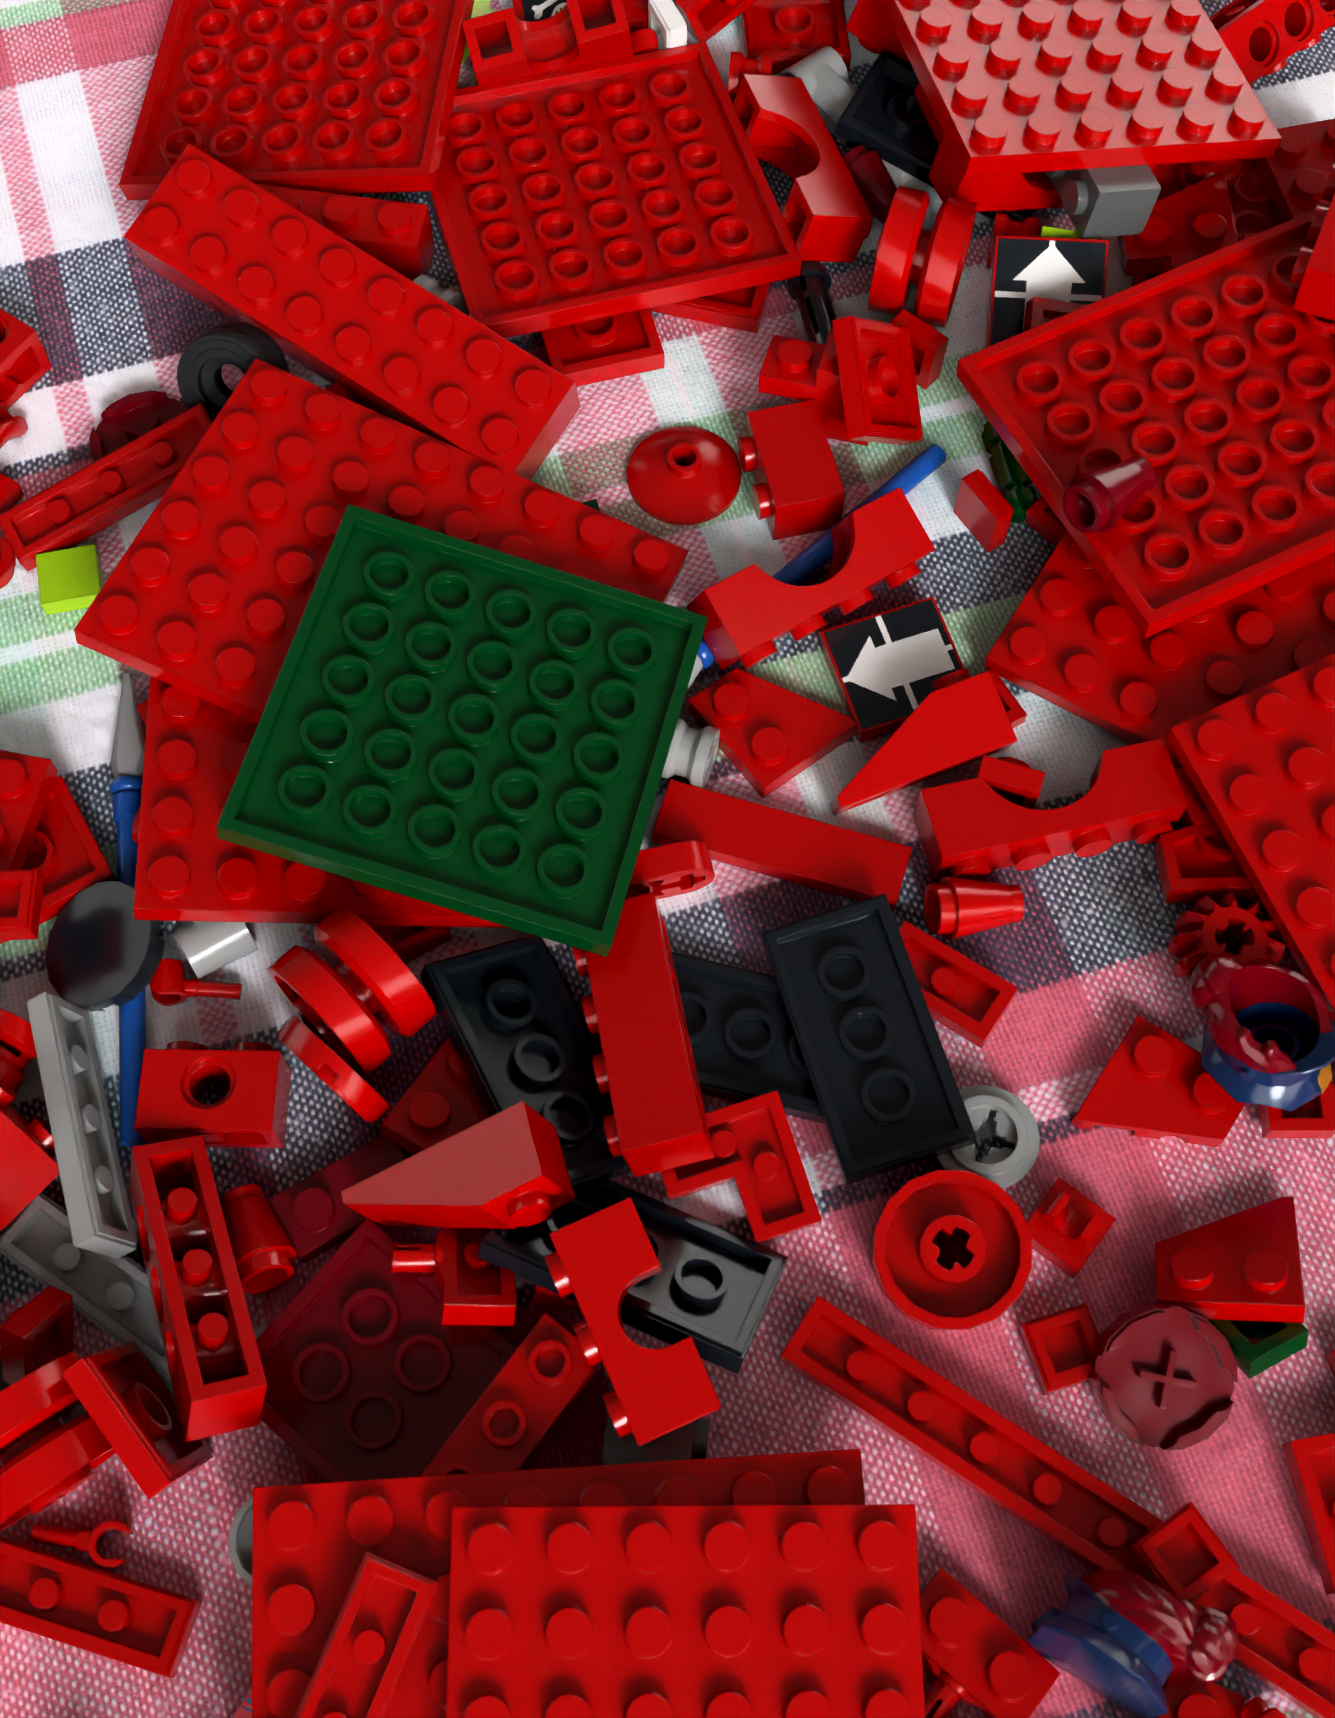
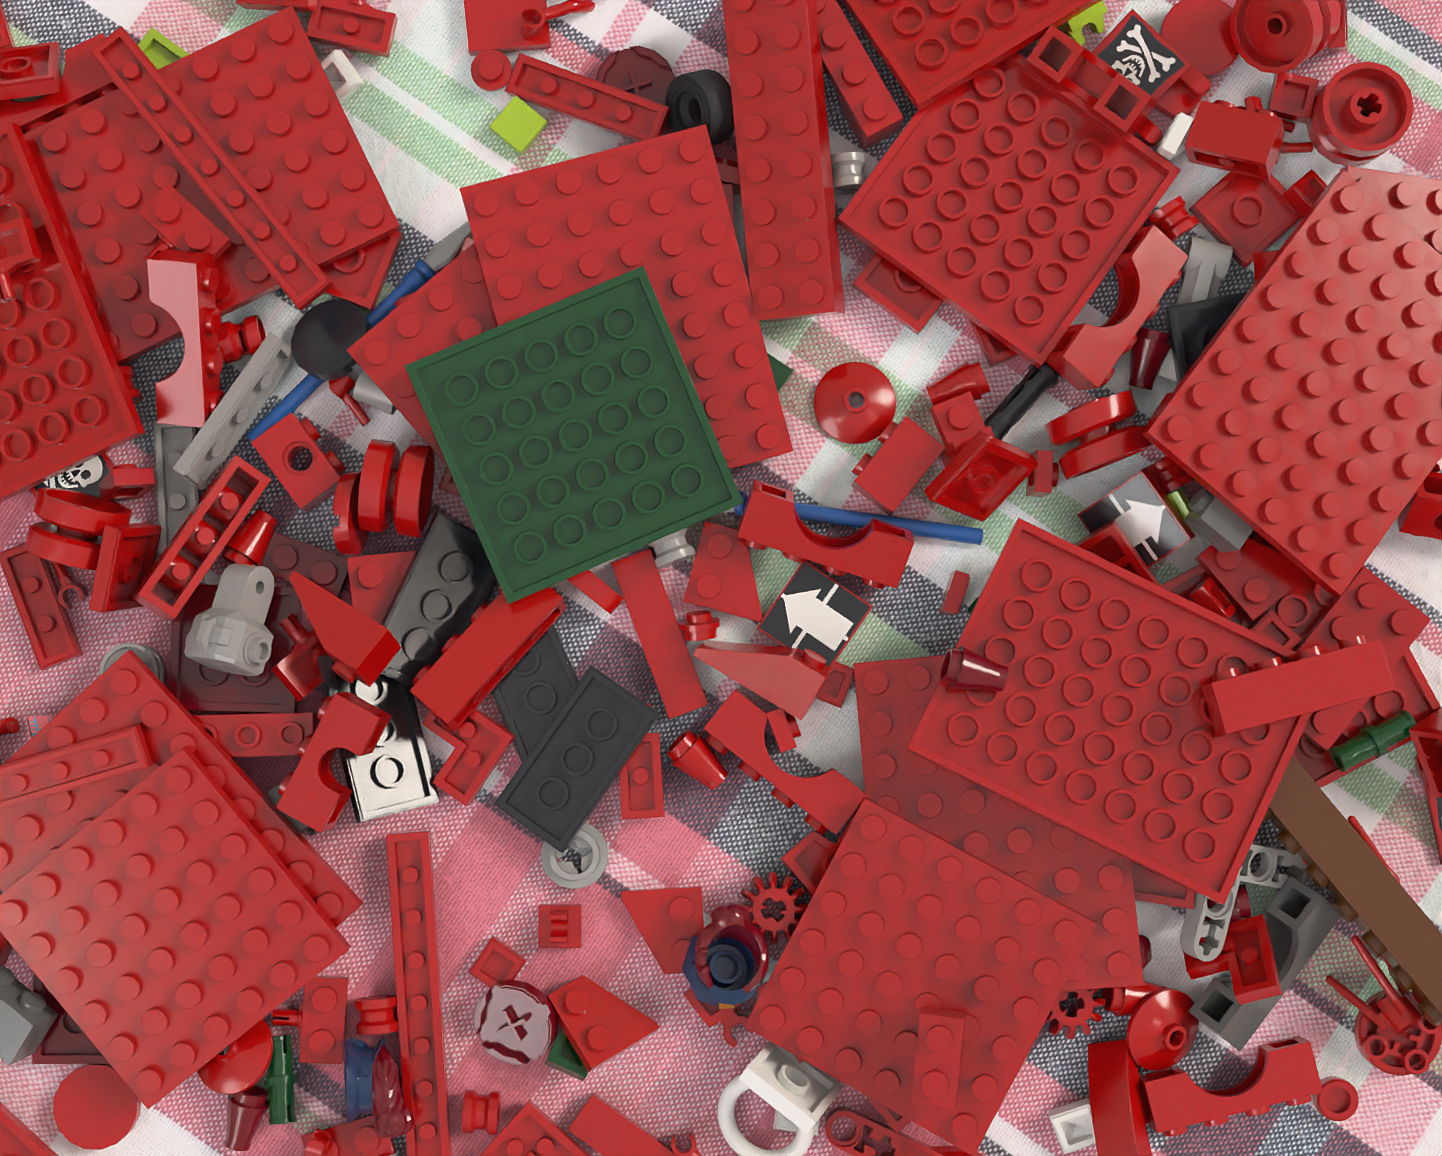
camera: 50 degrees right, 20 degrees up
(351, 1336) = (233, 630): none -> light grey piece
(748, 355) = (959, 381): none -> red cone
(808, 789) = (699, 626): none -> red plate
(991, 1241) = (469, 886): red wheel -> none
(1023, 1563) = (376, 1014): none -> red wheel
(1184, 1554) = (431, 1086): red tile -> none
(1263, 1519) = (481, 1112): none -> red wheel

